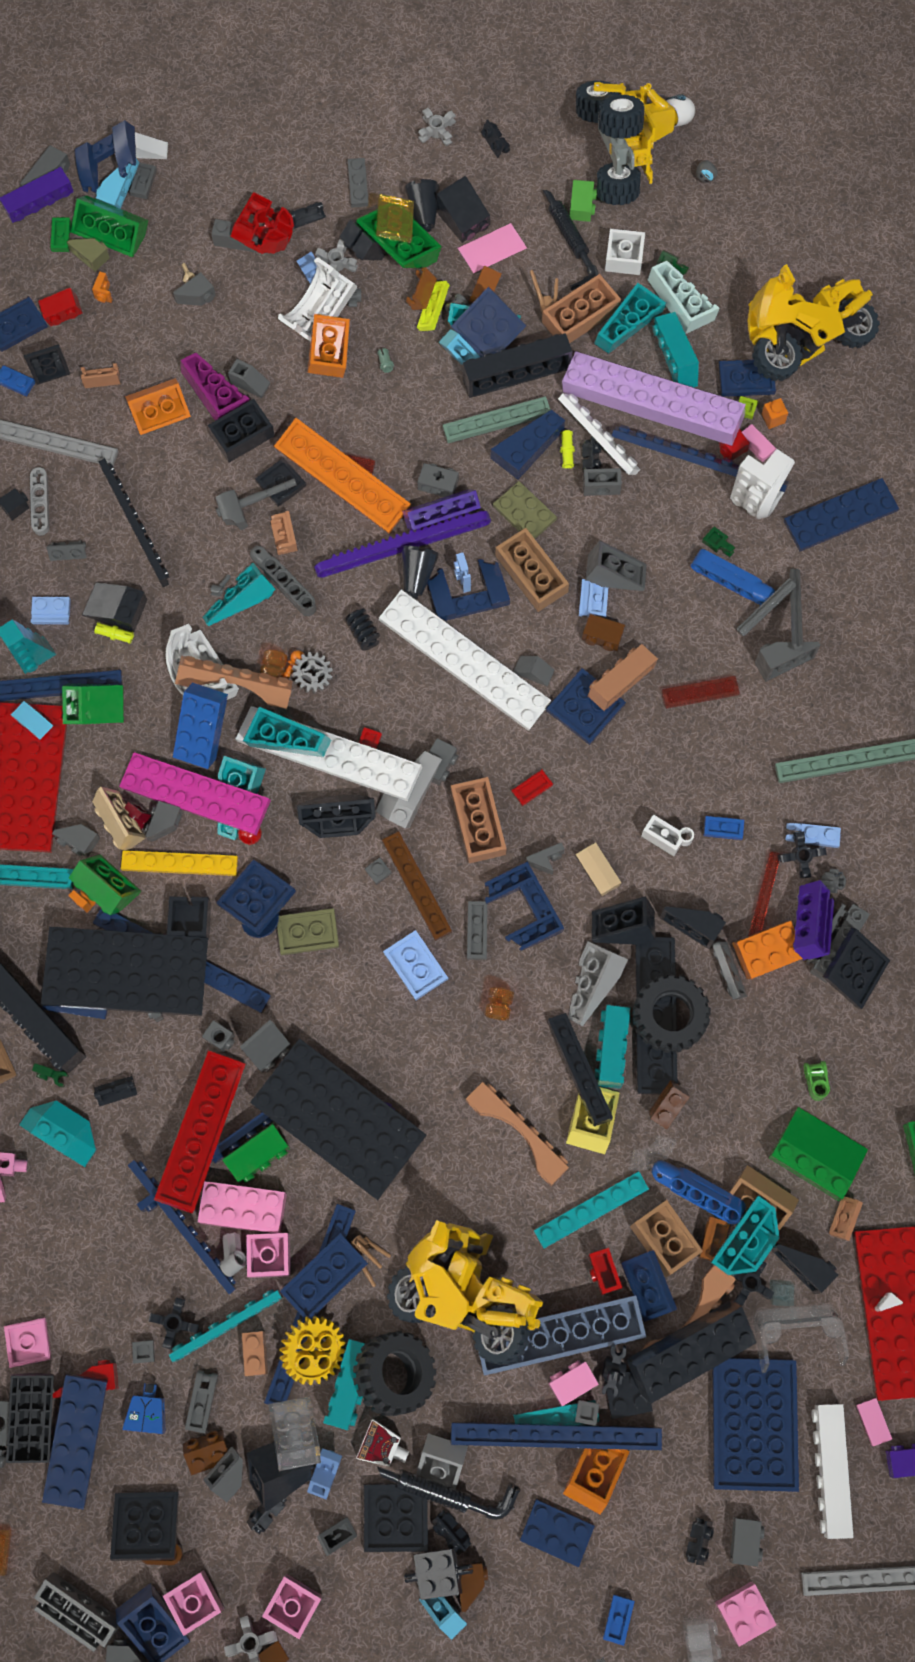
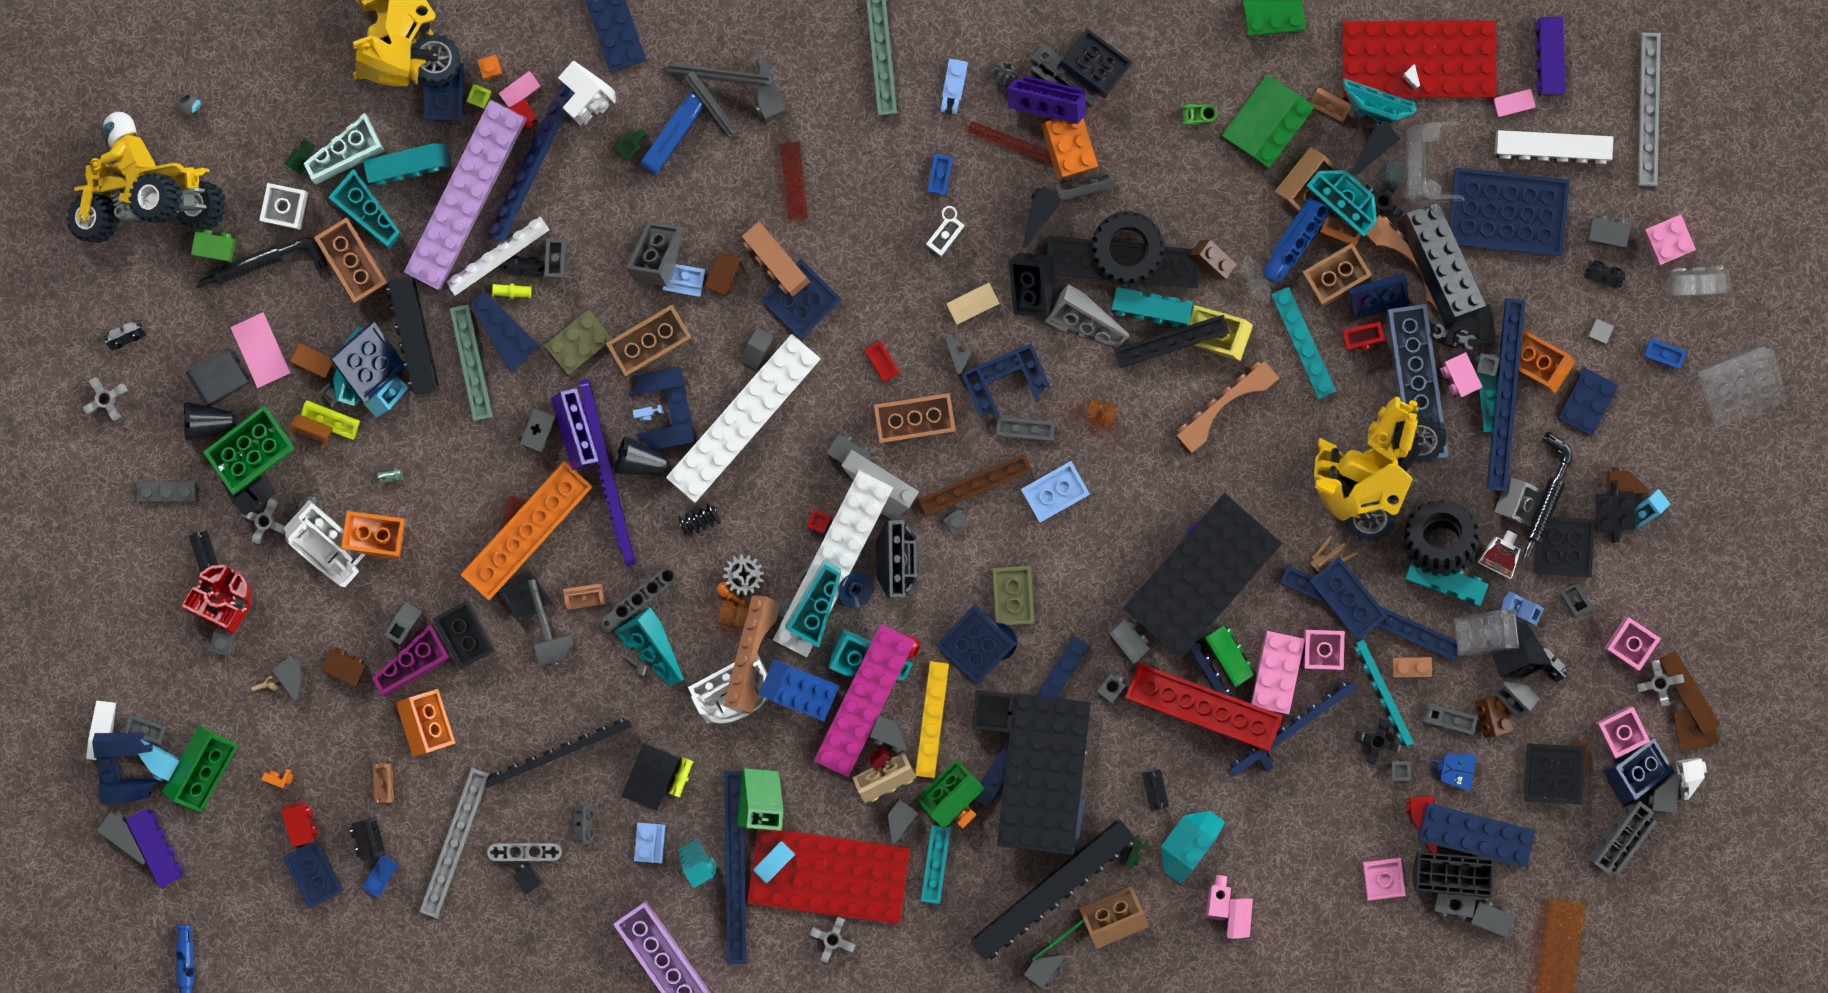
camera: 85 degrees left, 15 degrees up
(60, 234) = (206, 822): green plate -> none
(90, 252) = (231, 790): olive slope -> none
(206, 334) = (343, 666): none -> reddish brown brick
(234, 1259) = (1325, 681): light grey piece -> none
(299, 784) = (860, 593): none -> dark blue dish
(308, 266) = (275, 549): medium blue brick -> none
(310, 1369) = (1413, 612): yellow gear -> none
(394, 218) = (230, 453): clear yellow tile -> none
(444, 1527) = (1586, 493): black hinge -> none
(545, 301) = (339, 297): medium nougat plant -> none
(636, 1542) = (1601, 331): none -> light grey tile
(804, 870) = (973, 85): black pin -> none
(854, 1266) = (1377, 104): none -> teal wedge

